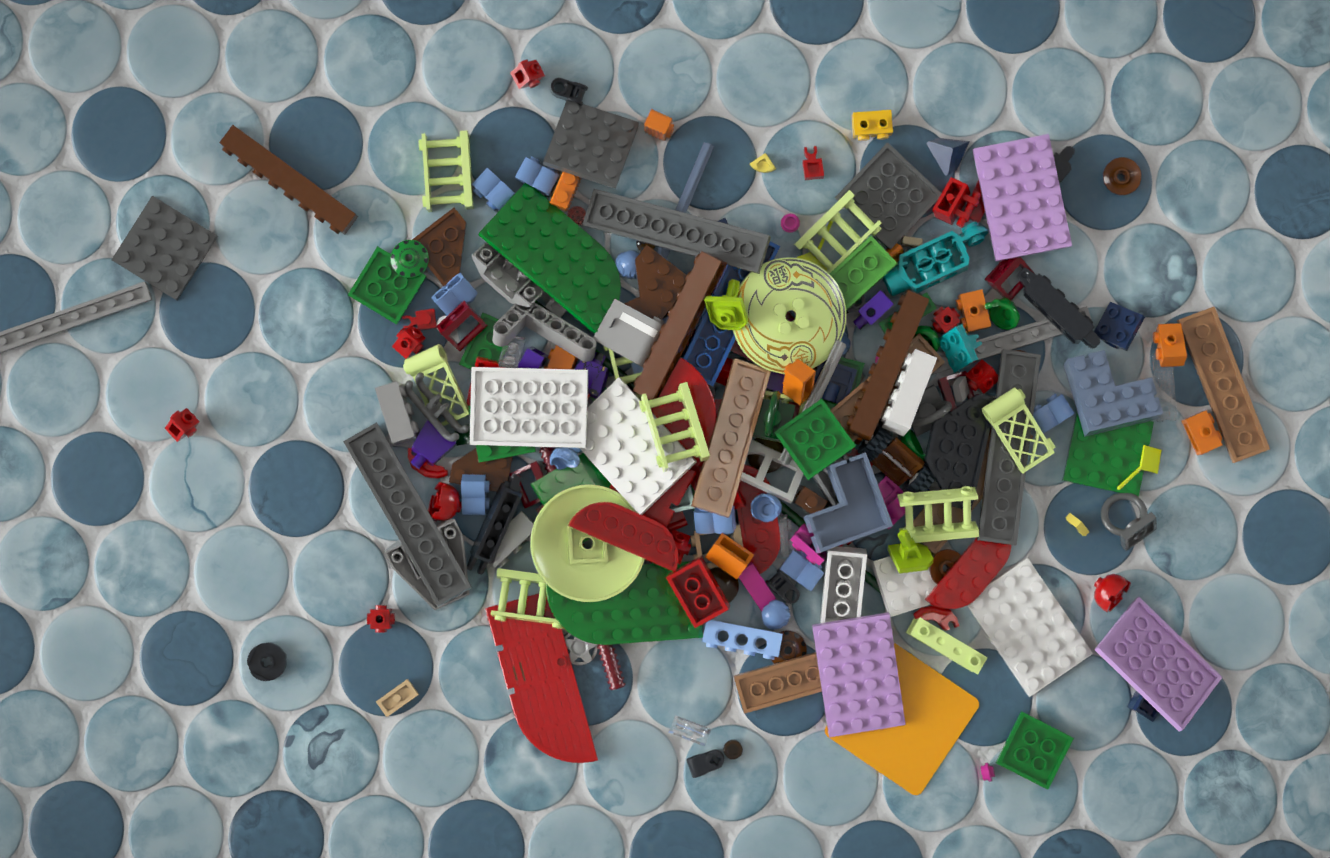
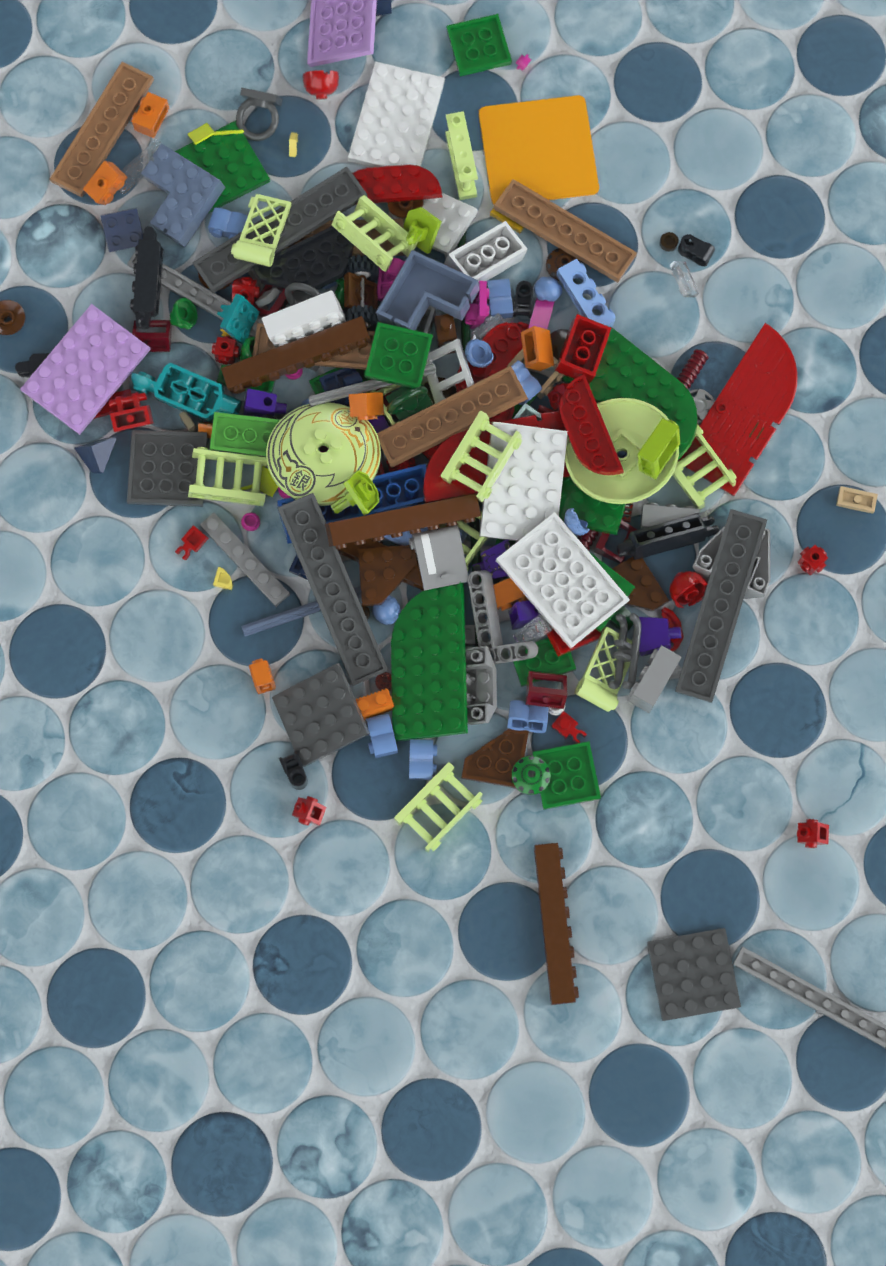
camera: 130 degrees left, 10 degrees down
(409, 341) = (593, 719): red brick -> none
(474, 494) = (660, 571): medium blue brick -> none
(558, 566) = (659, 448): none -> lime window
(764, 193) = (244, 559): none -> light grey plate
(858, 674) = (537, 197): lavender plate -> none
(871, 121) = (122, 523): yellow brick -> none
(939, 615) = (444, 179): red piece -> none
(973, 311) = (200, 337): orange brick -> none

